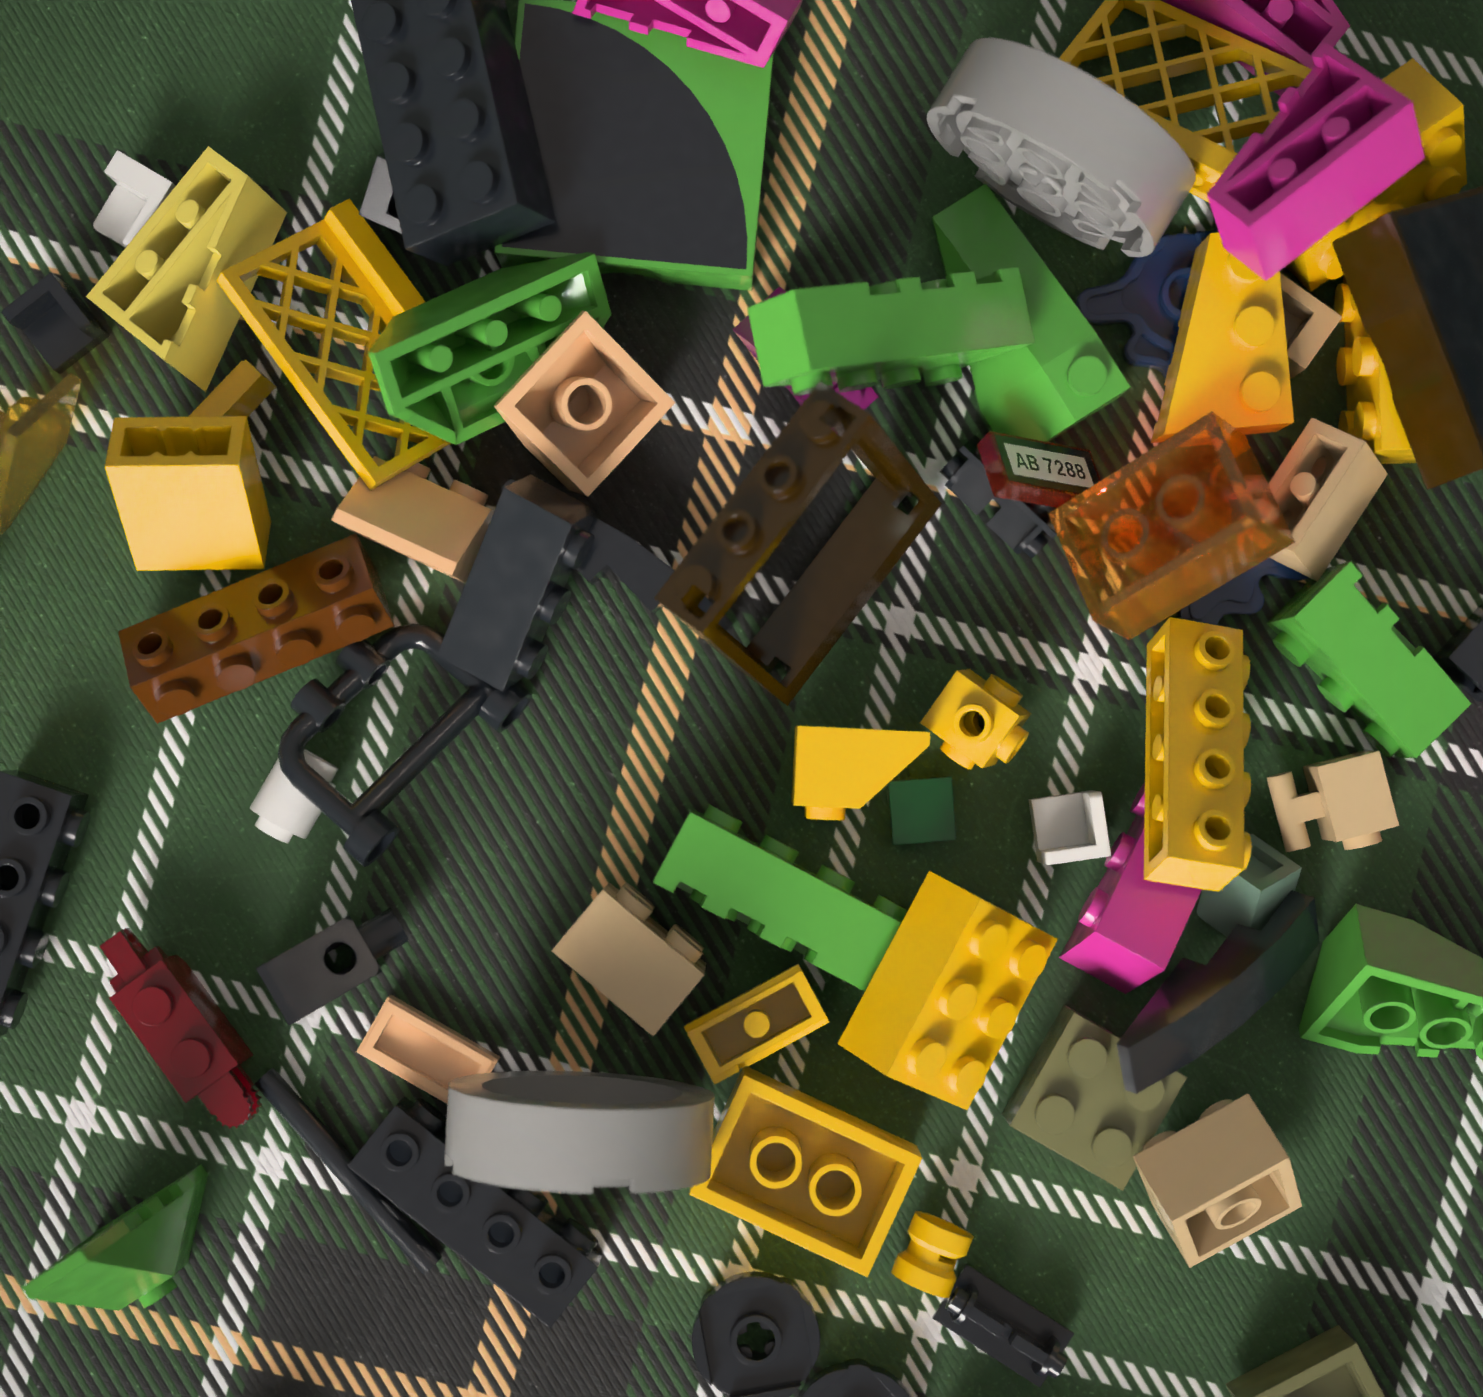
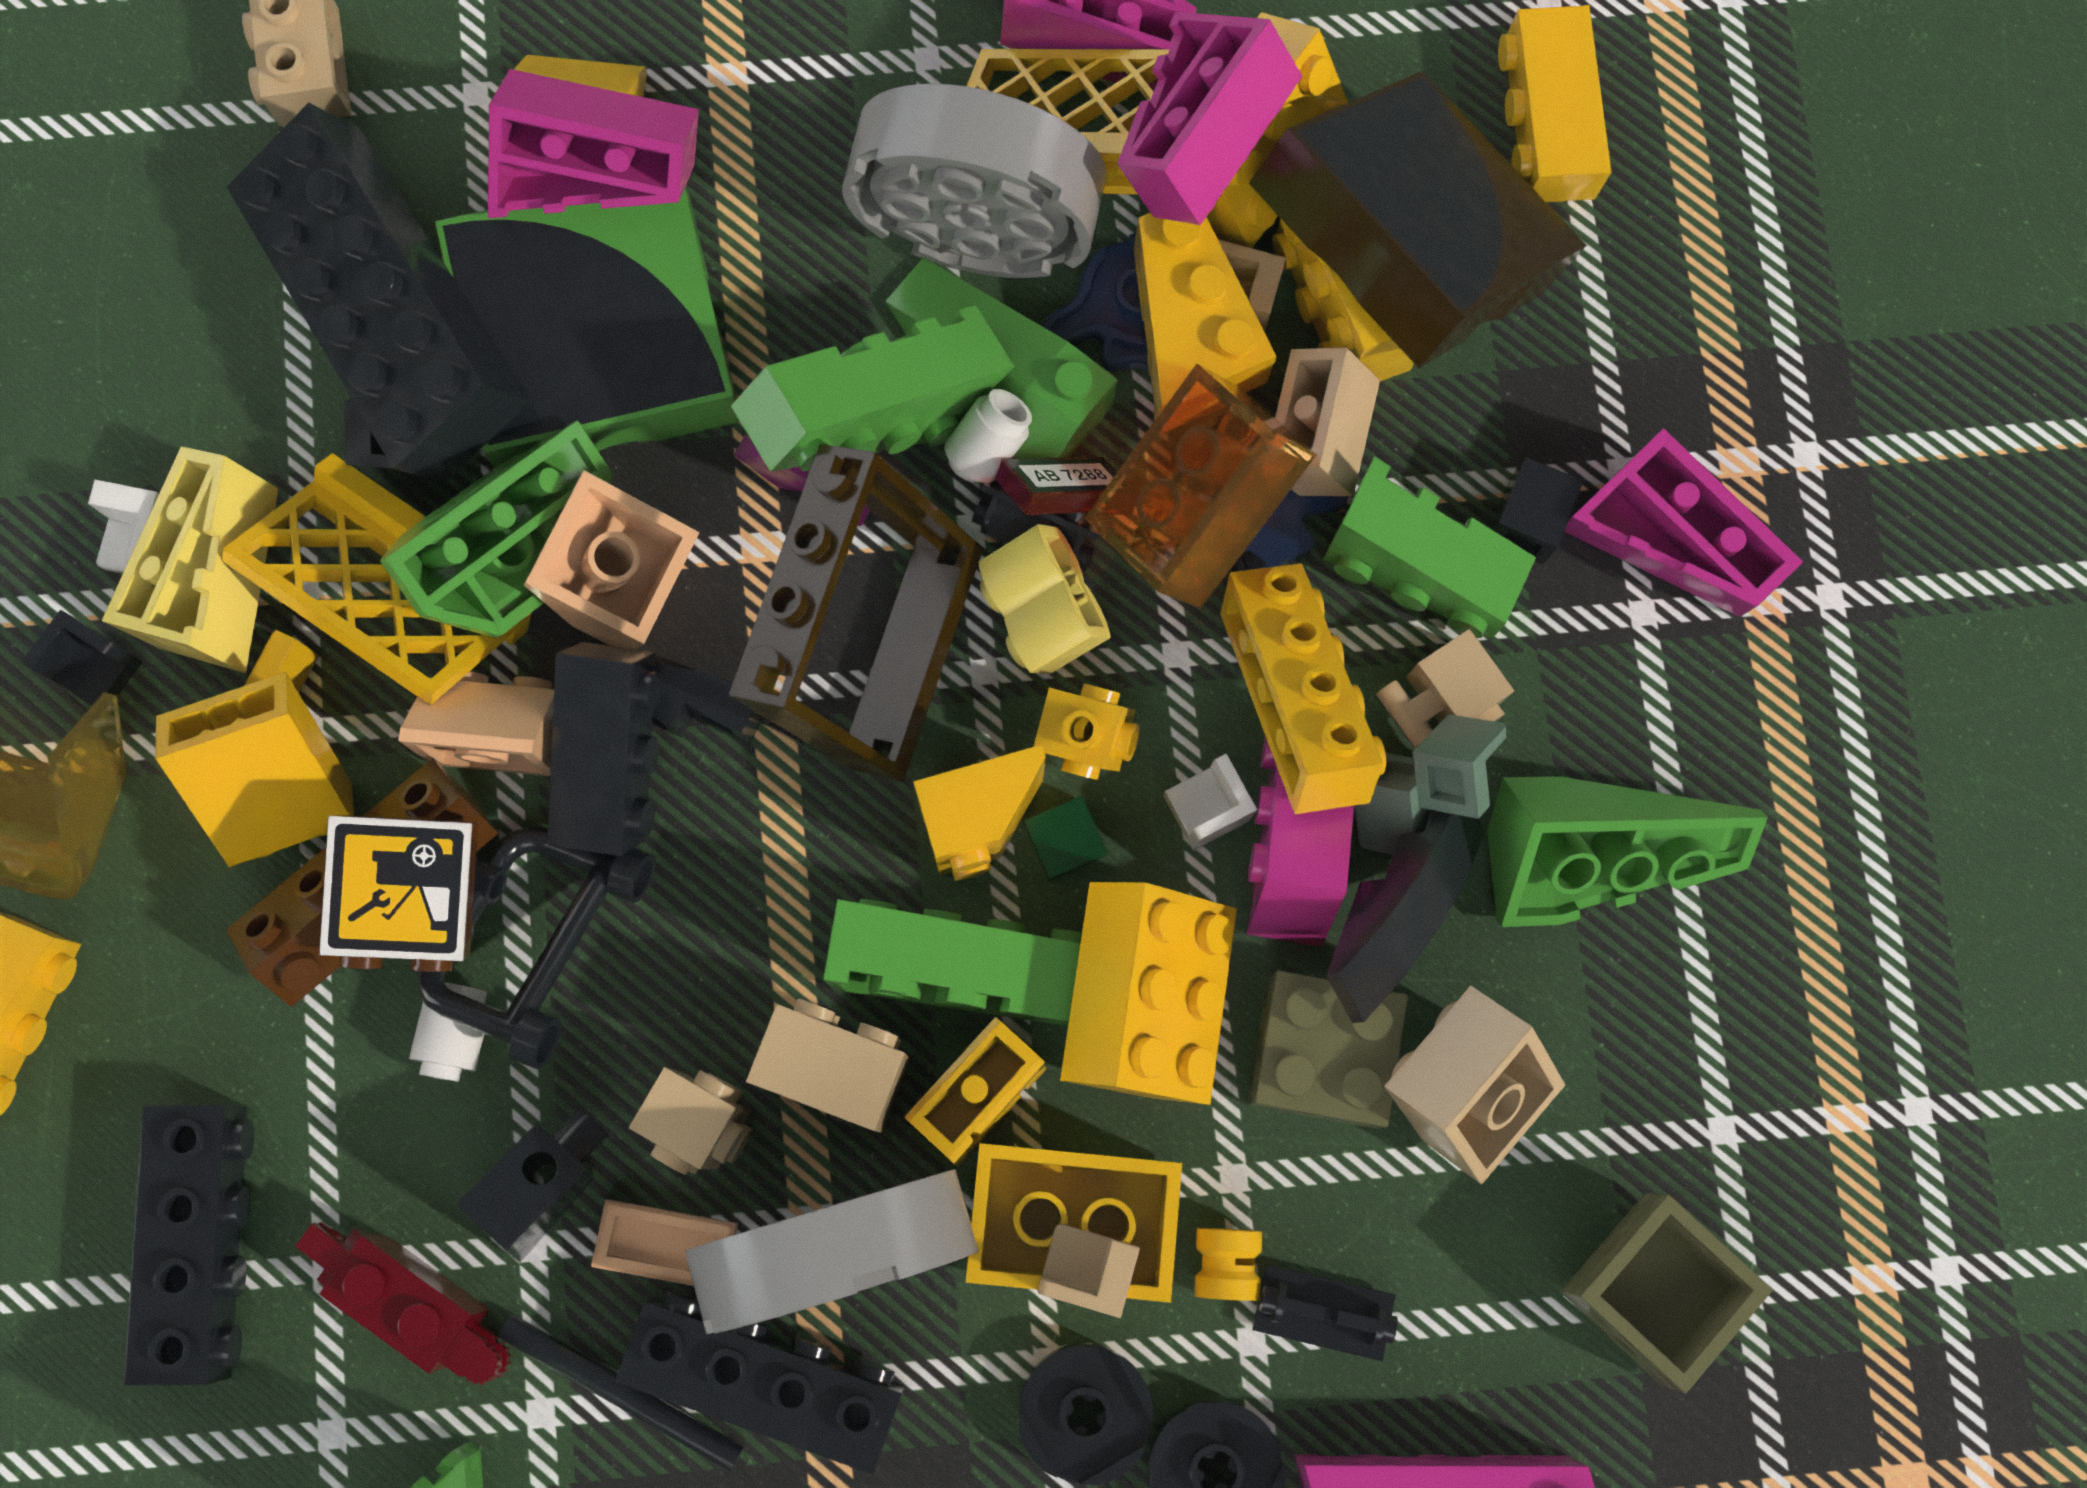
camera: 25 degrees left, 10 degrees down
(290, 662) = (398, 891): none -> piece
(491, 961) = (693, 1121): none -> tan brick
(803, 1227) = (1088, 1270): none -> tan panel
(980, 577) = (1042, 600): none -> light yellow brick
(985, 399) = (986, 434): none -> white brick
(1313, 879) = (1453, 765): none -> sand green panel

